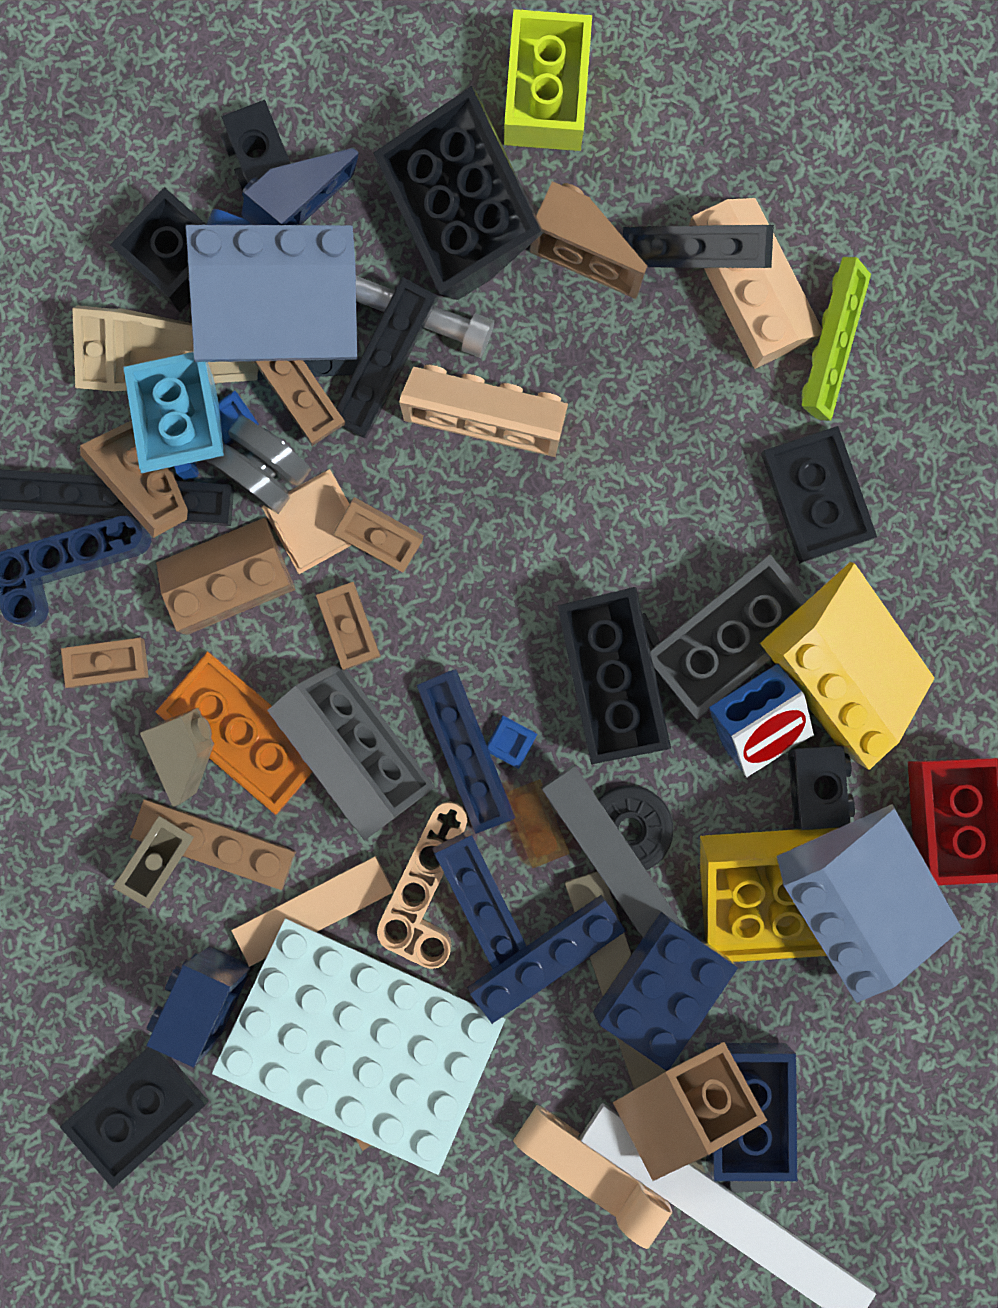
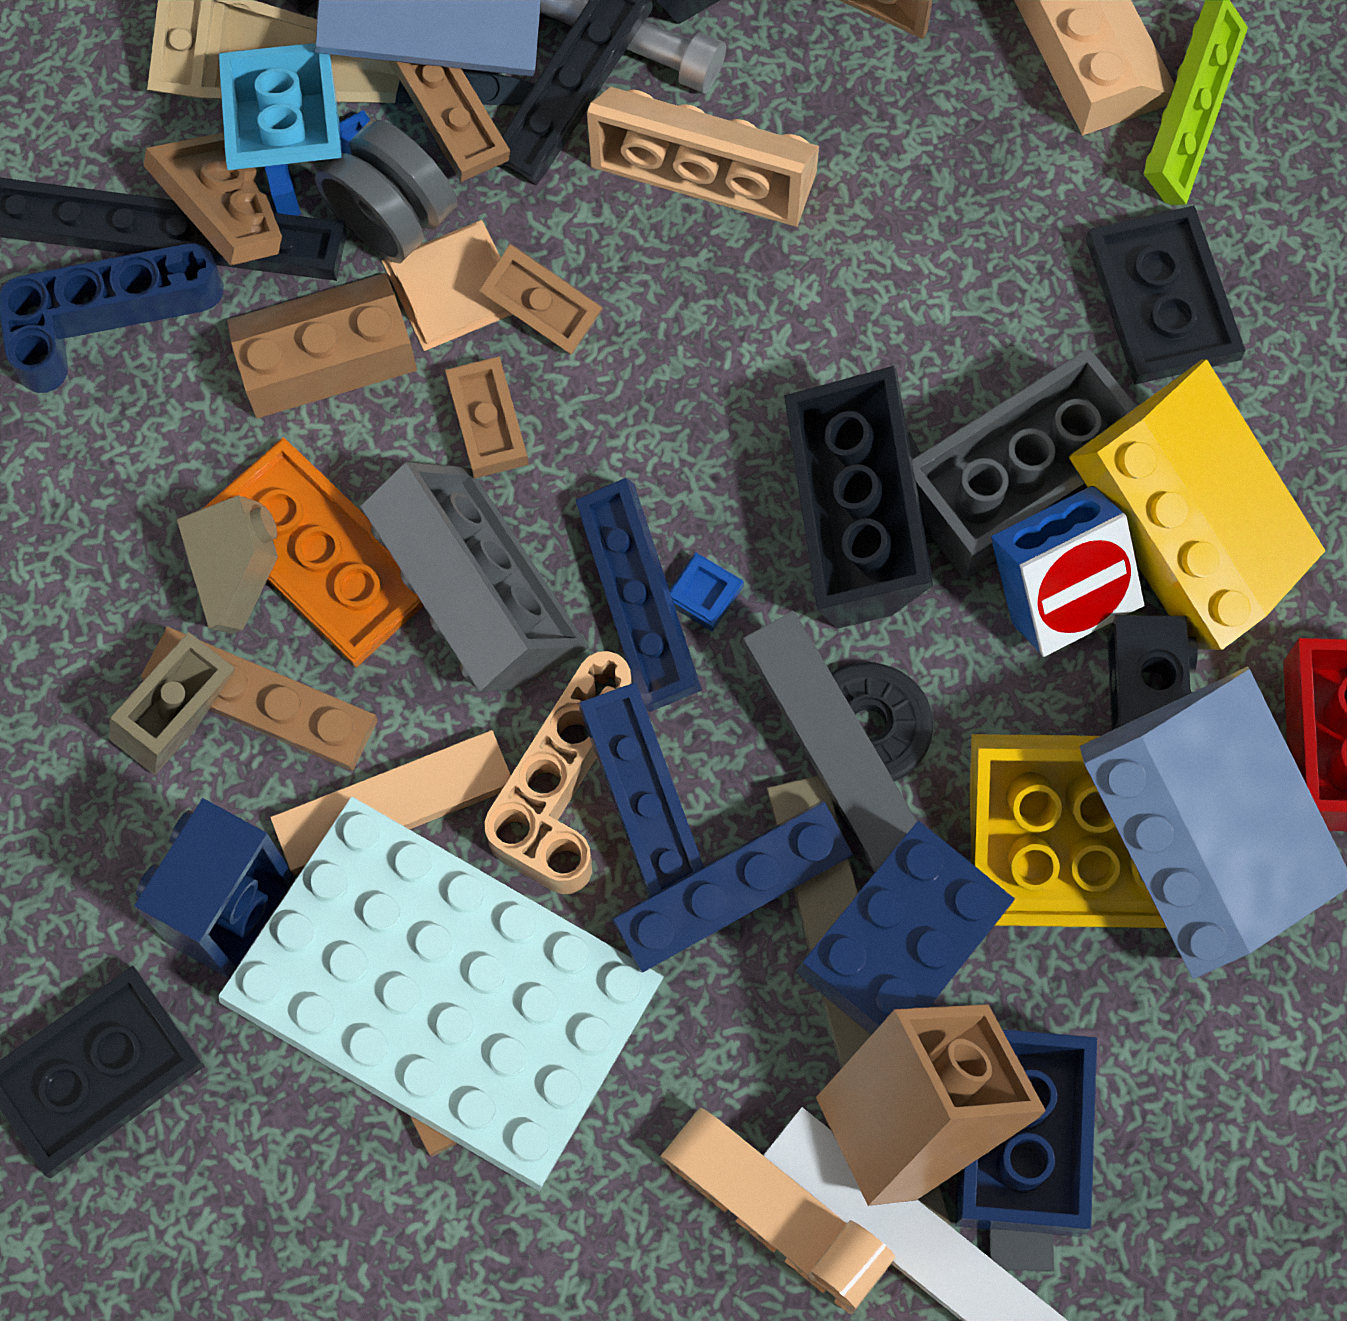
camera: 10 degrees right, 15 degrees down
(104, 663) = (137, 441): medium nougat plate -> none
(536, 824) = (733, 706): clear orange plate -> none

